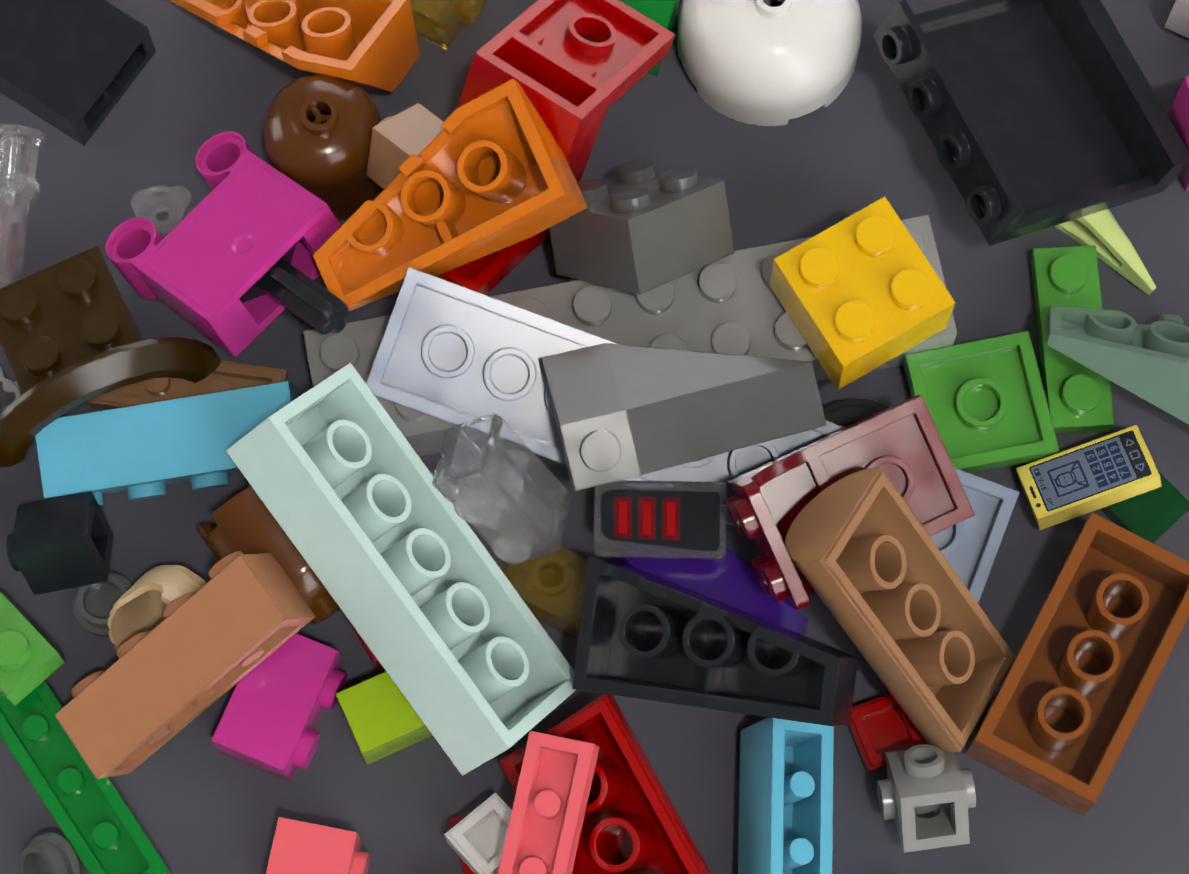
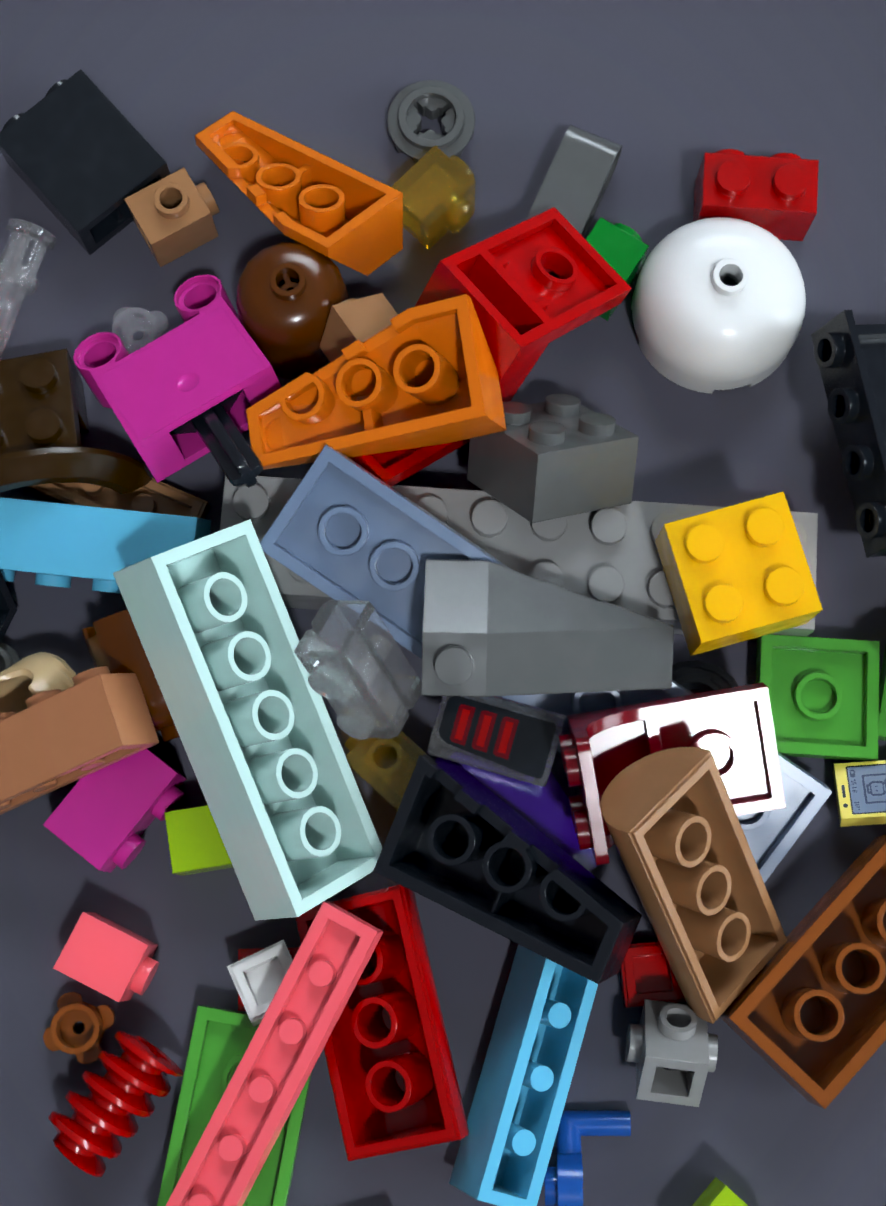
camera: 15 degrees right, 5 degrees up
(167, 81) = (174, 216): none -> medium nougat brick

